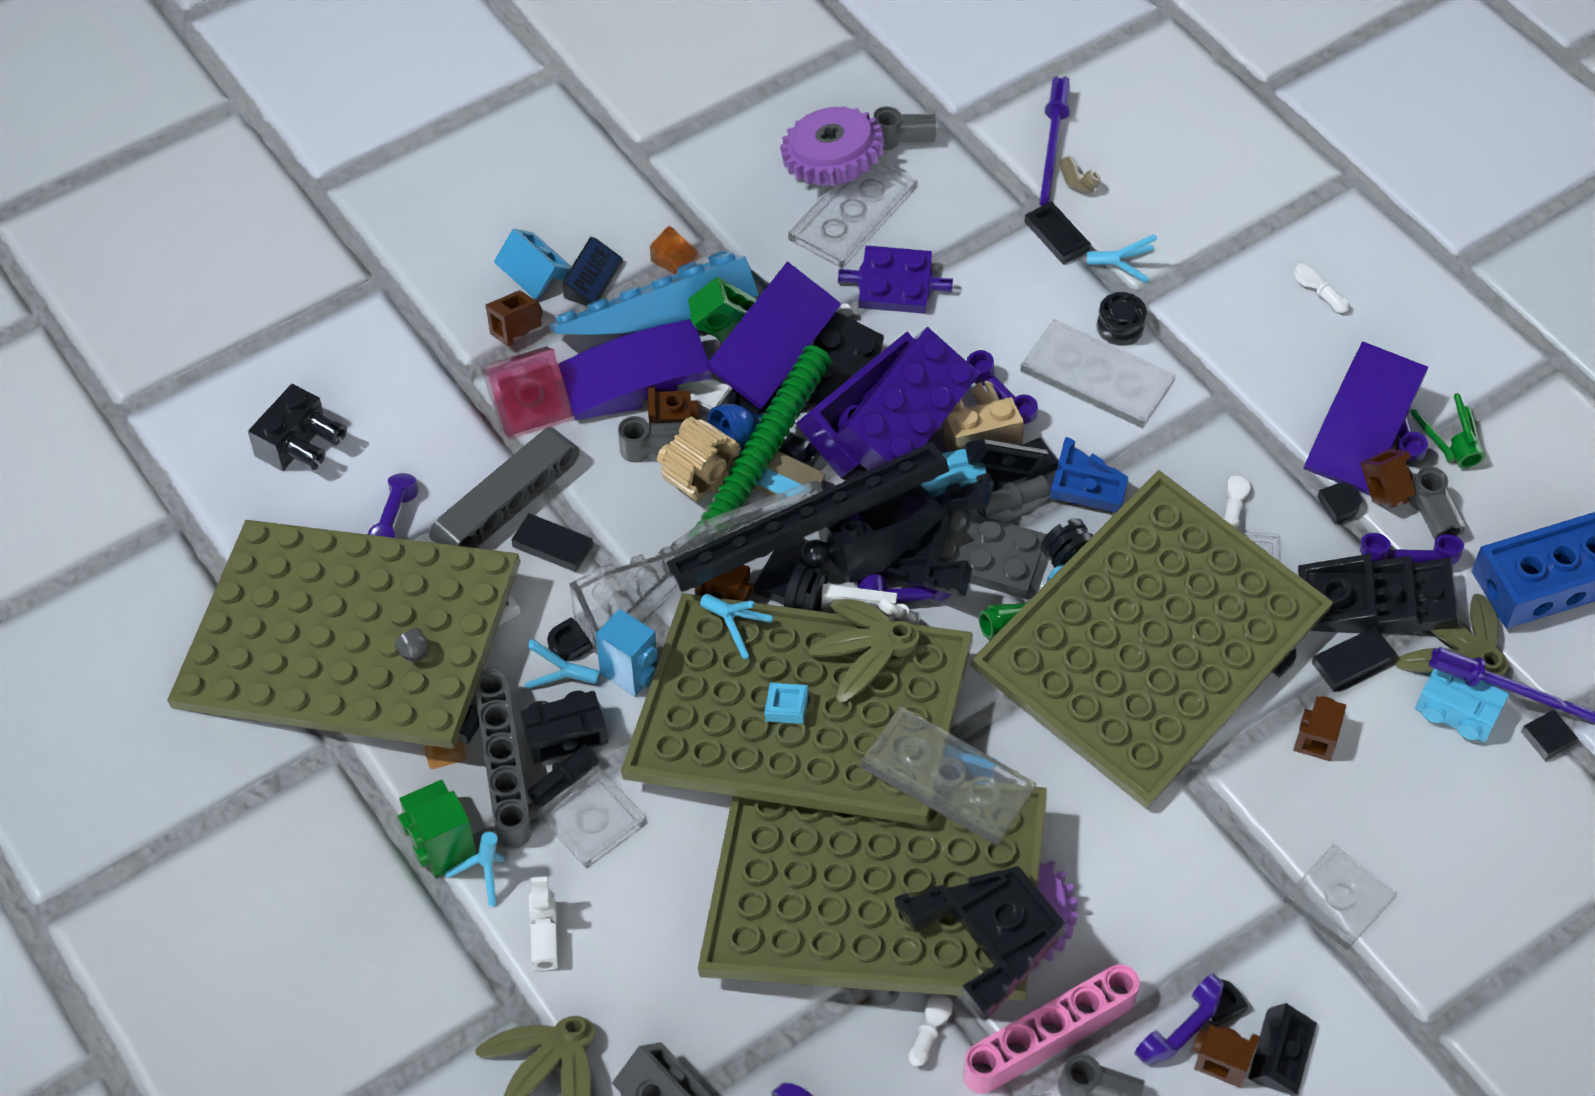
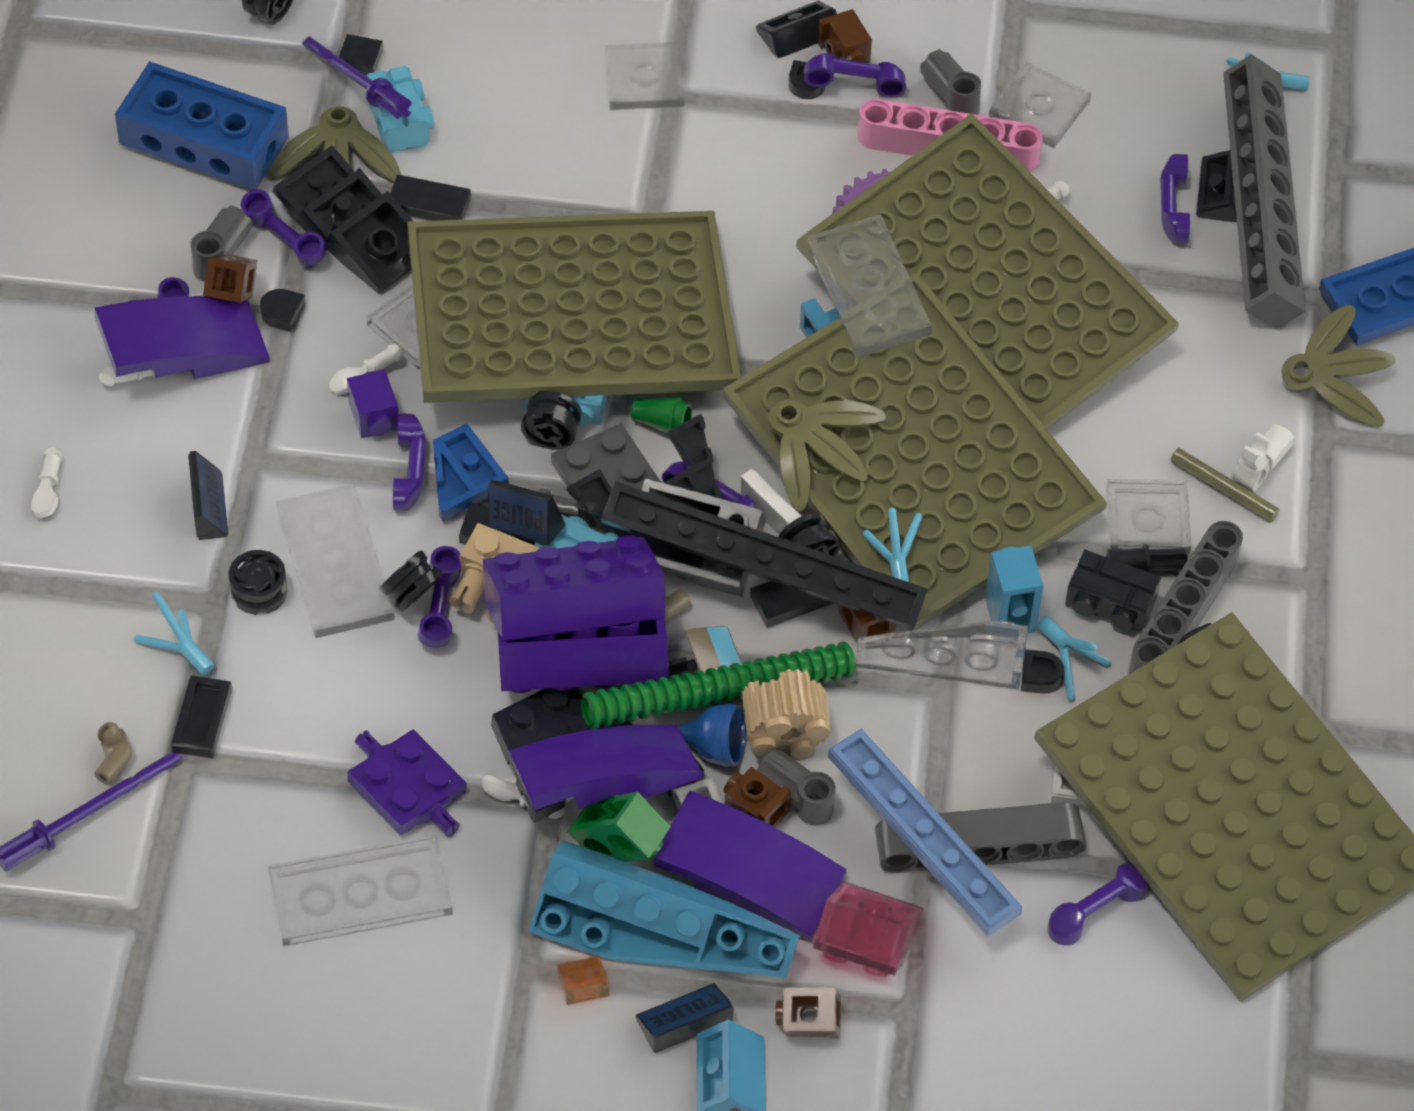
camera: 140 degrees left, 0 degrees up
(288, 428) = (1131, 1055): black brick -> none
(412, 645) = (1204, 701): dark grey hinge -> none
(437, 827) = (1290, 572): green brick -> none
(484, 857) = (1275, 516): medium azure plant -> none
(538, 448) = (925, 832): none -> medium blue tile
(552, 542) = (976, 767): black tile -> none
(561, 890) = (1225, 484): none -> olive bar
(733, 520) = (812, 605): clear tile -> none
(786, 703) = (929, 443): medium azure tile -> none
(832, 146) = (335, 973): medium lavender gear -> none
(898, 612) = (765, 455): white piece -> none
(904, 127) = (213, 931): dark grey piece -> none
(1005, 920) = (939, 156): black wing -> none
(1027, 372) = (411, 581): none -> black wheel
(1106, 438) = (408, 490): none -> dark purple bar
(1197, 472) = (373, 403): none -> dark purple brick
(1218, 343) = (207, 498): none -> black slope
(1320, 728) = (522, 166): reddish brown brick -> none
(1465, 445) = (129, 267): green plant -> none

